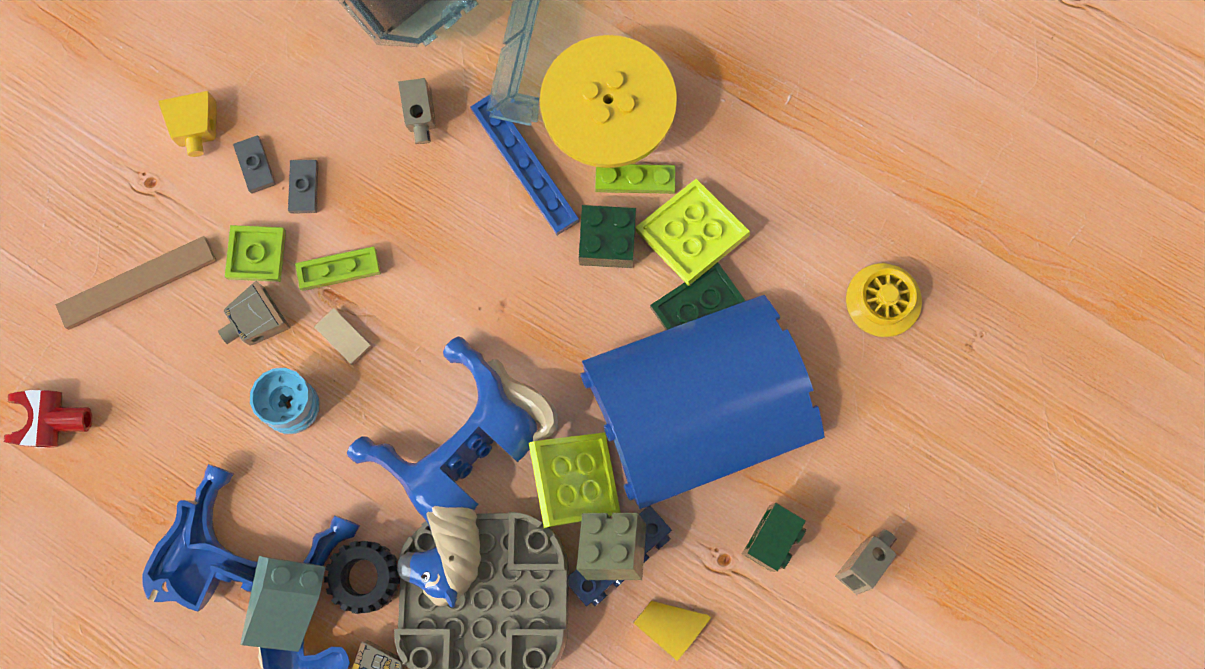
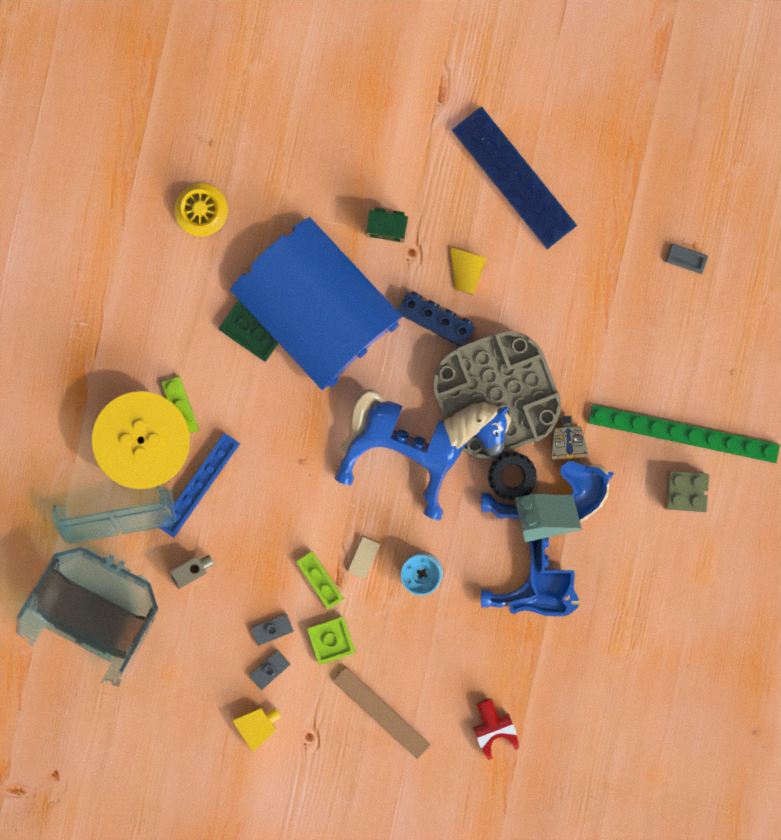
camera: 115 degrees left, 10 degrees up
(253, 317) = (374, 622): dark tan torso -> none
(573, 478) = (399, 365): neon yellow plate -> none
(607, 236) = (229, 408): dark green brick -> none
(611, 546) = (432, 324): olive piece -> none
(692, 231) = (204, 352): neon yellow plate -> none
(868, 563) = (385, 163): dark tan torso -> none

